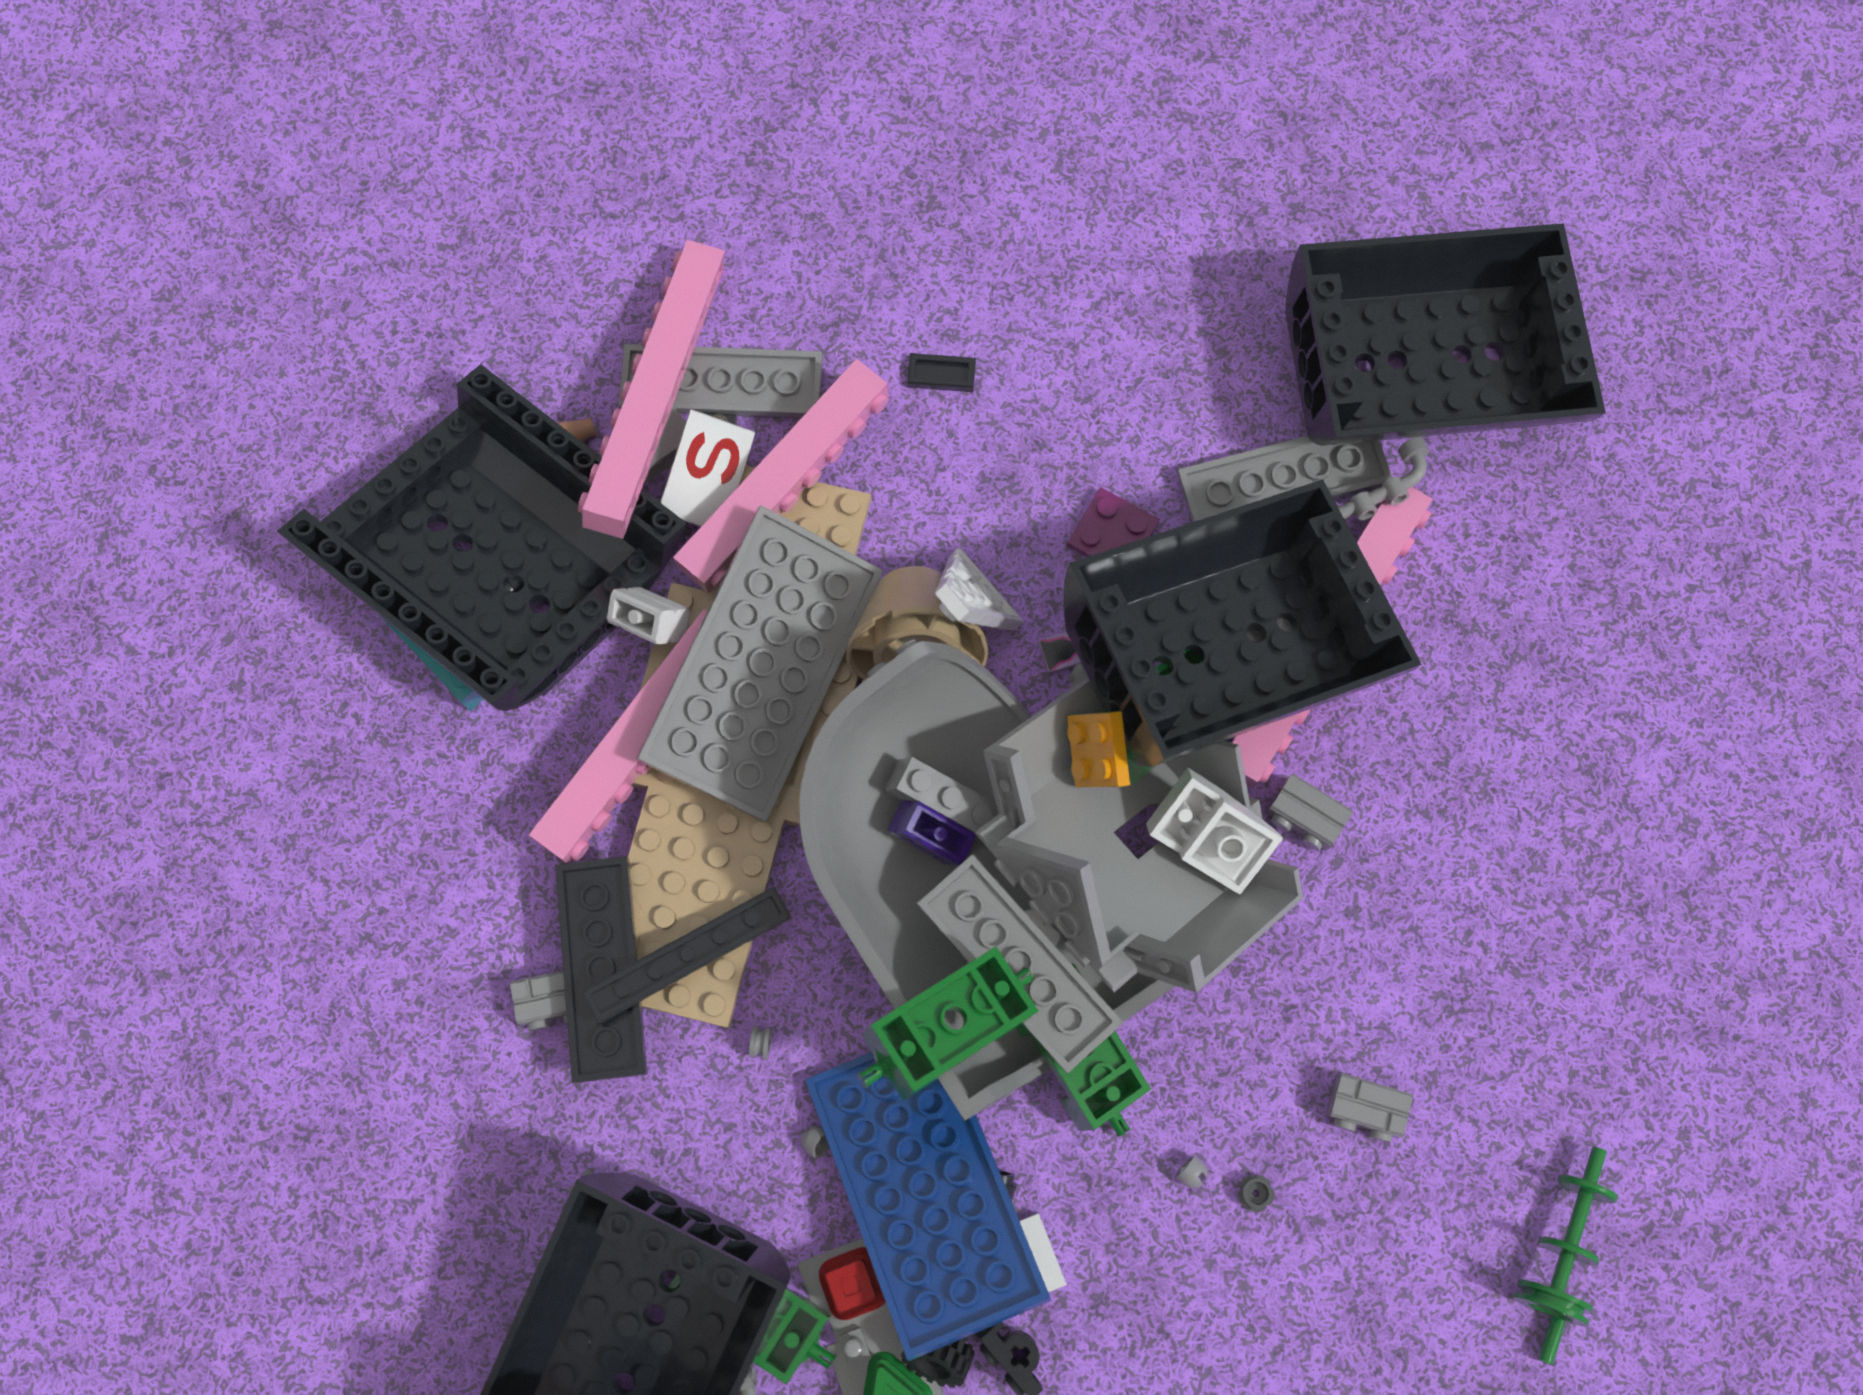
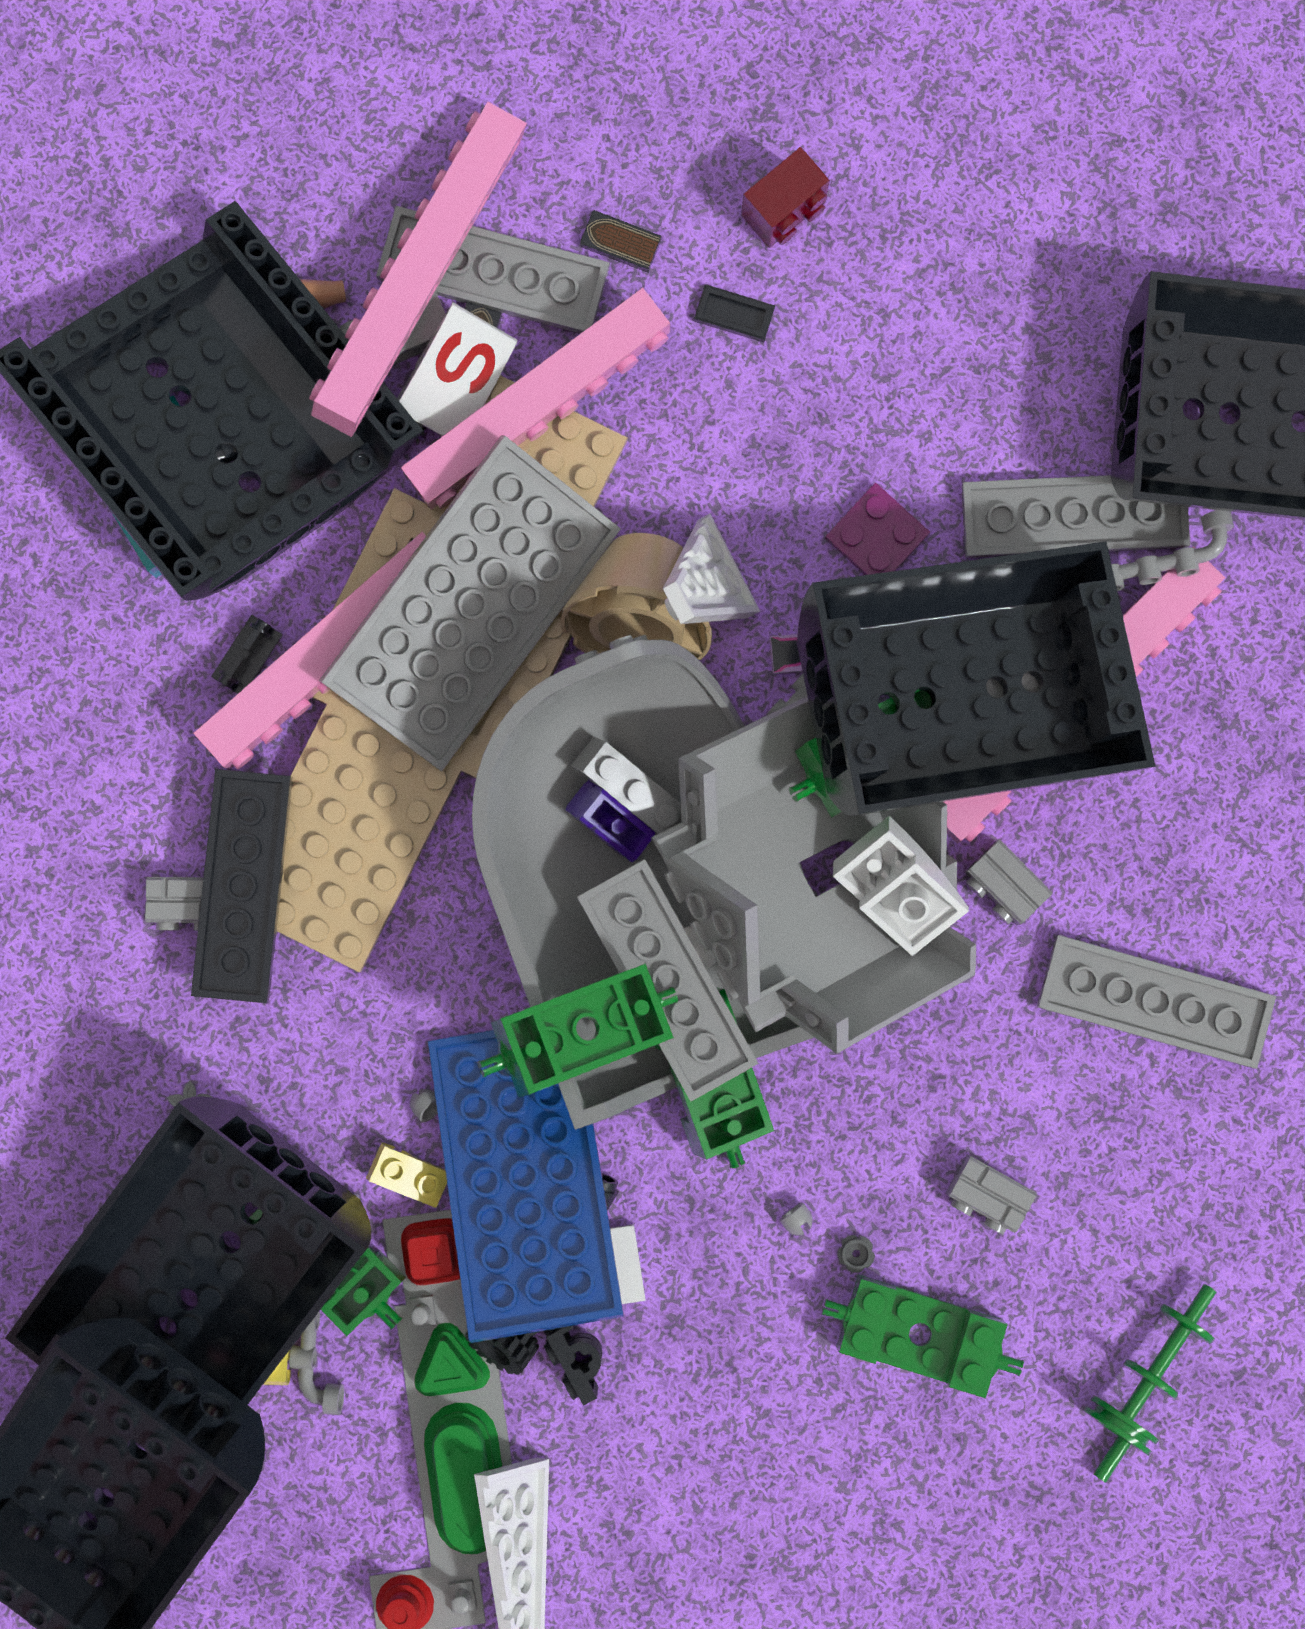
camera: 10 degrees right, 10 degrees up
(566, 758) = (247, 654): none -> black hinge
(647, 615) = (362, 523): white brick -> none
(685, 955) = (331, 892): black tile -> none
(760, 1042) = (390, 993): light grey bush -> none
(813, 1213) = (407, 1175): none -> light yellow plate
(828, 333) = (620, 241): none -> tile
(964, 264) = (785, 198): none -> dark red brick
(1098, 750) = (799, 779): light orange plate -> none
(1379, 1264) = (961, 1346): none -> green brick
(1474, 891) = (1156, 1001): none -> light grey plate

